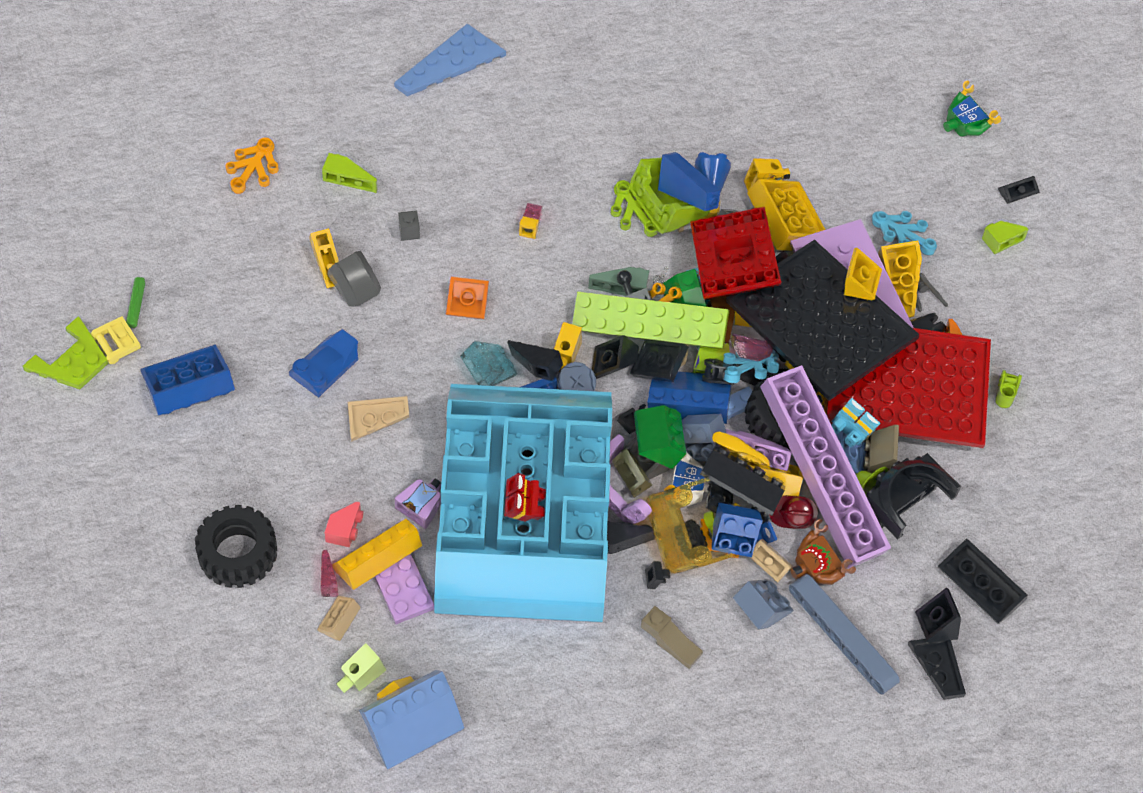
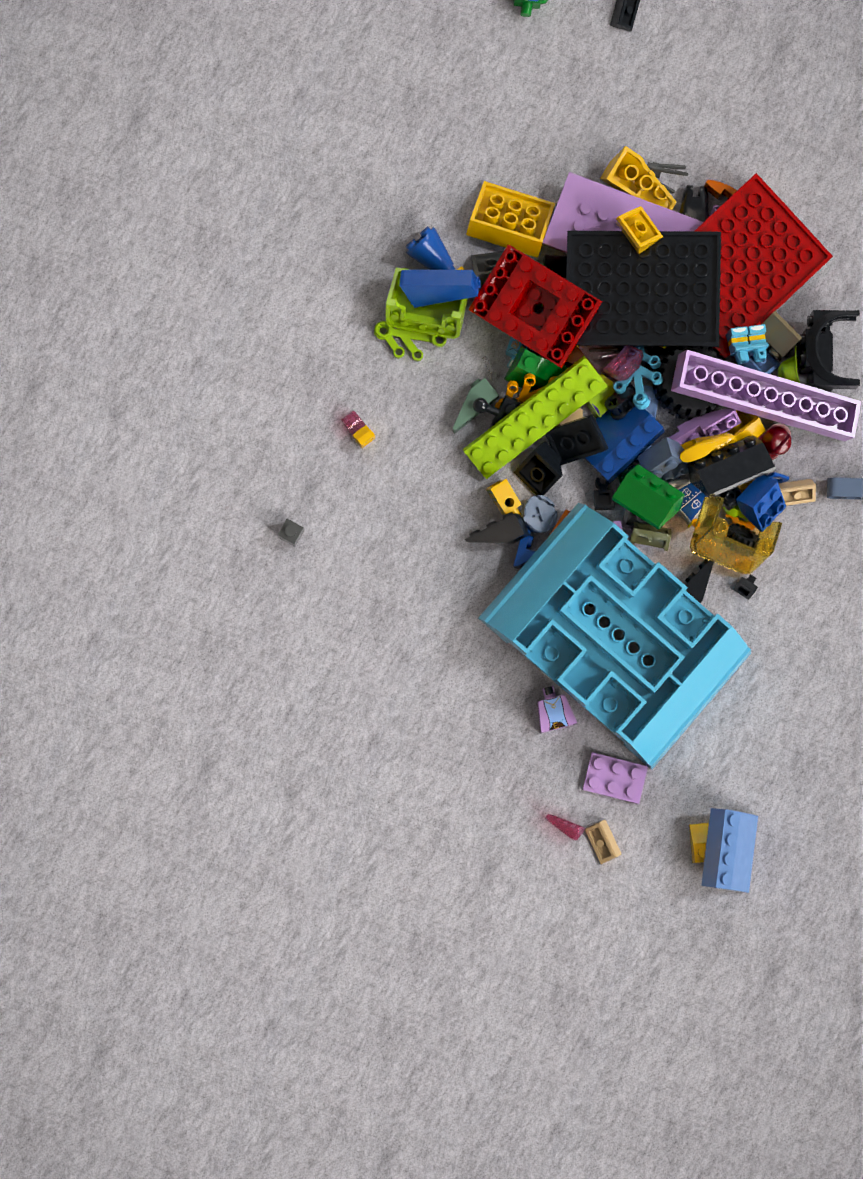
camera: 55 degrees left, 25 degrees up
(75, 365) = (225, 887): lime wing -> none
(122, 337) = (227, 836): light yellow plate -> none
(135, 302) = (198, 802): bright green axle -> none
(187, 379) = (307, 811): blue slope -> none
(227, 524) = (493, 904): black tyre -> none
(263, 147) = (126, 610): light orange plant -> none
(324, 253) = (272, 621): yellow slope -> none
(326, 362) = (371, 692): blue slope -> none
(342, 525) = (531, 785): coral slope -> none
(345, 172) = (194, 544): lime slope -> none
(354, 279) = (313, 615): dark grey slope -> none
(361, 669) = (663, 850): yellowish green torso -> none
(375, 414) = (450, 689): tan wing -> none
(378, 554) = (575, 777): yellow slope -> none
(452, 58) = (137, 360): medium blue wing -> none
(467, 297) = (396, 538): orange slope -> none
(488, 363) = (471, 569): clear light blue slope -> none
(523, 498) = (638, 646): red hips -> none
(630, 513) = (689, 565): lavender beam -> none
(670, 637) = (803, 616): dark tan slope -> none
(763, 603) = (826, 527): sand blue slope -> none
(765, 169) = (463, 206): yellow torso -> none
(818, 559) = (825, 459): dark orange torso -> none
(882, 220) = (594, 141): medium azure plant -> none
(1003, 235) = (660, 67): lime slope -> none
(1007, 389) = (792, 185): lime piece -> none

